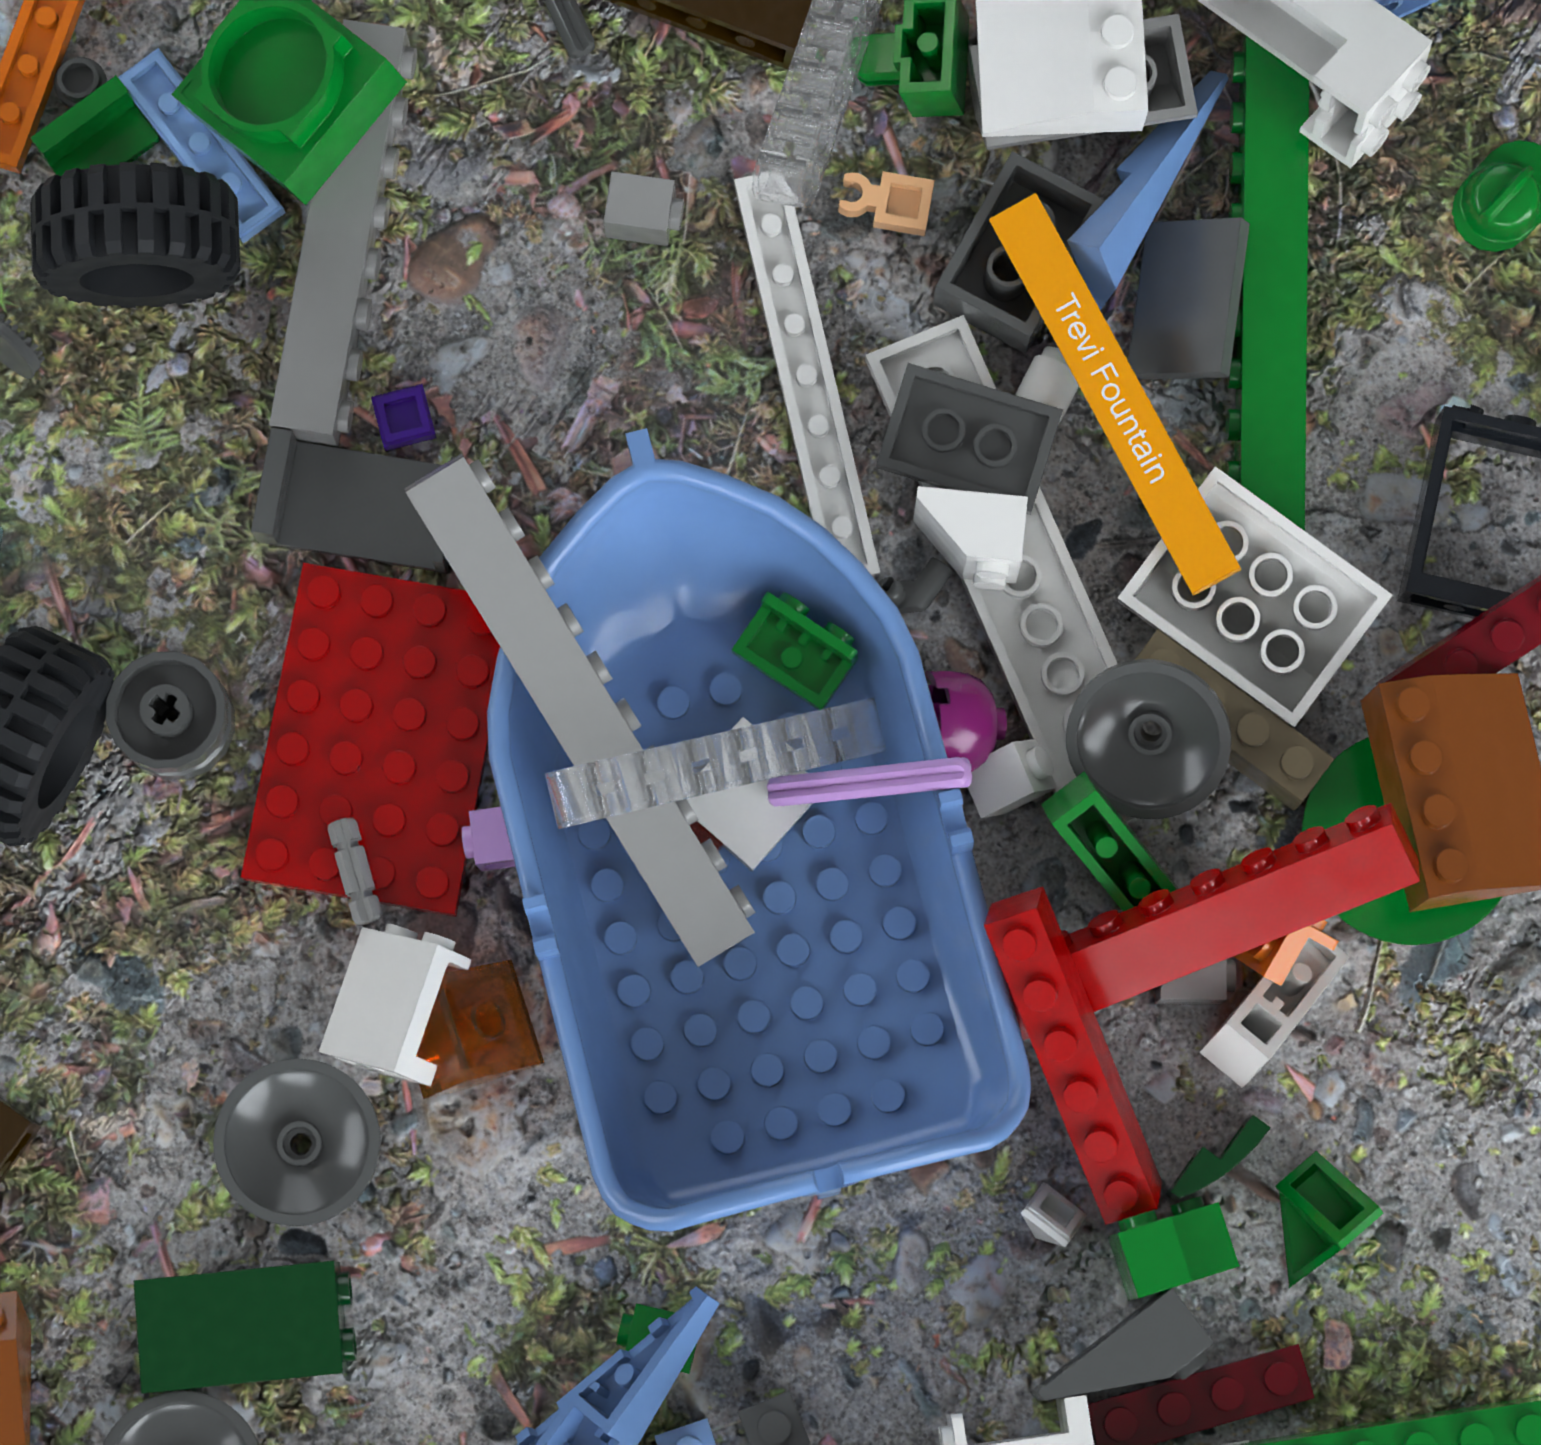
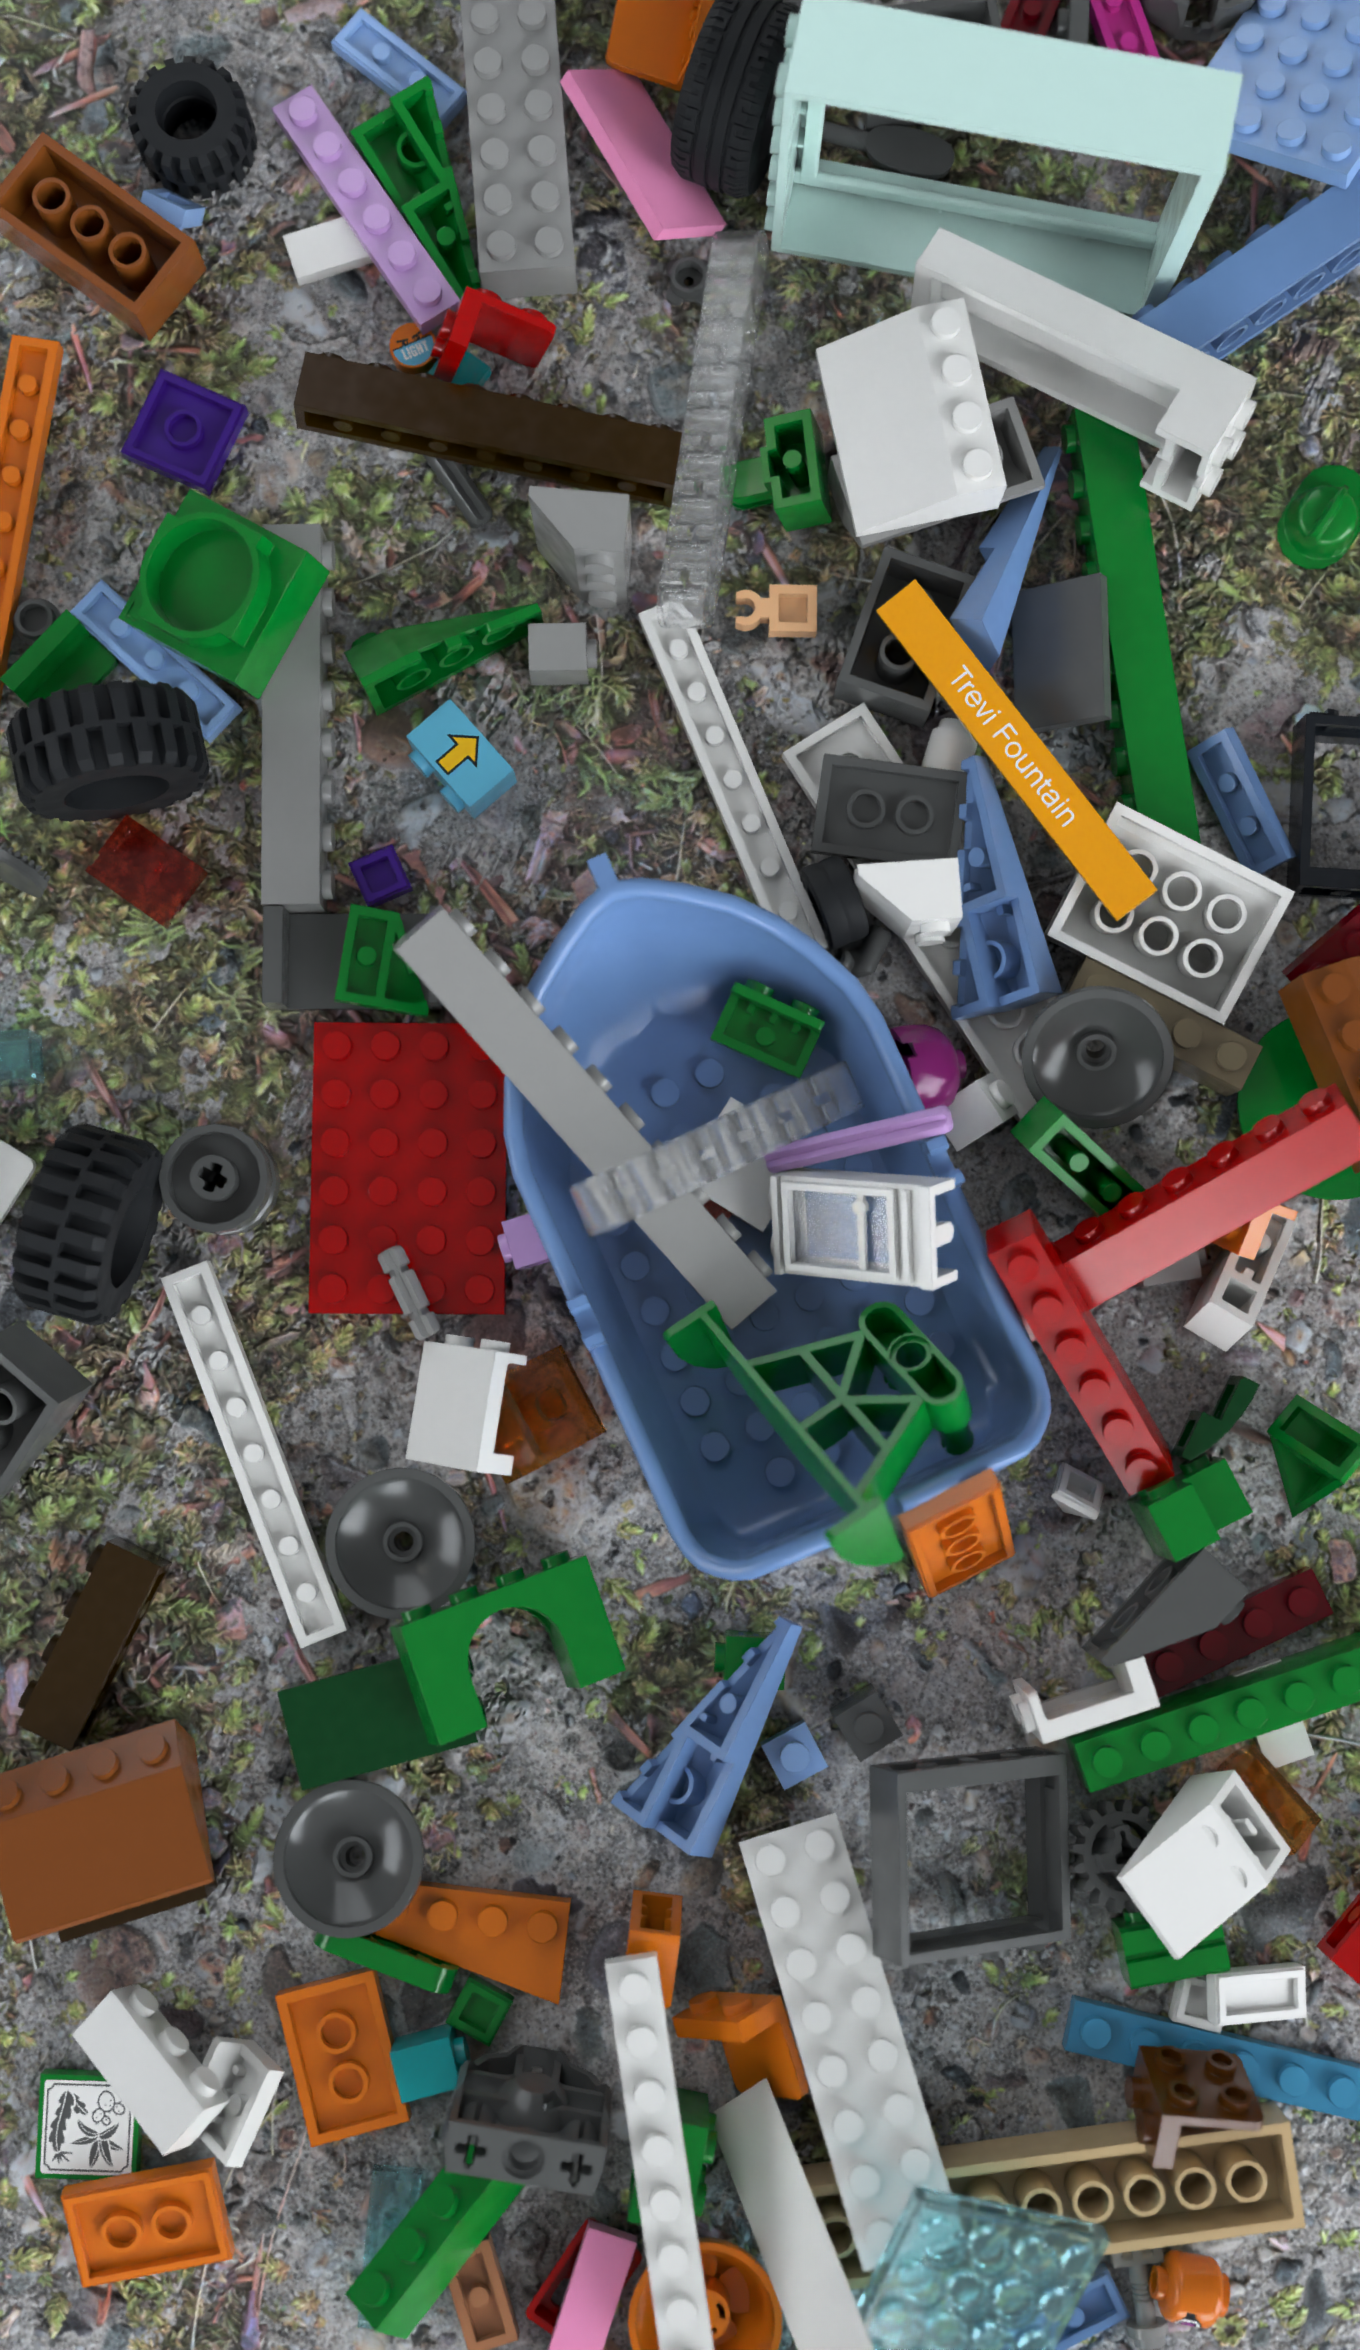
camera: 10 degrees left, 5 degrees up
(150, 370) = (146, 871): none -> clear red plate
(155, 1021) = (255, 1454): none -> white plate
(378, 514) = (373, 970): none -> green wing
(459, 1231) = (438, 1641): none -> green arch
(483, 188) = (419, 656): none -> green wedge
(513, 305) = (461, 759): none -> medium azure brick
(690, 95) = (585, 541): none -> light grey slope
(847, 1089) = (930, 1400): none -> green piece
(852, 875) = (859, 1226): none -> white door
(894, 525) = (835, 901): none -> black tyre
(906, 1228) = (958, 1533): none -> orange tile
(1067, 597) = (1002, 943): none -> medium blue wedge
(1360, 491) = (1240, 802): none -> medium blue plate

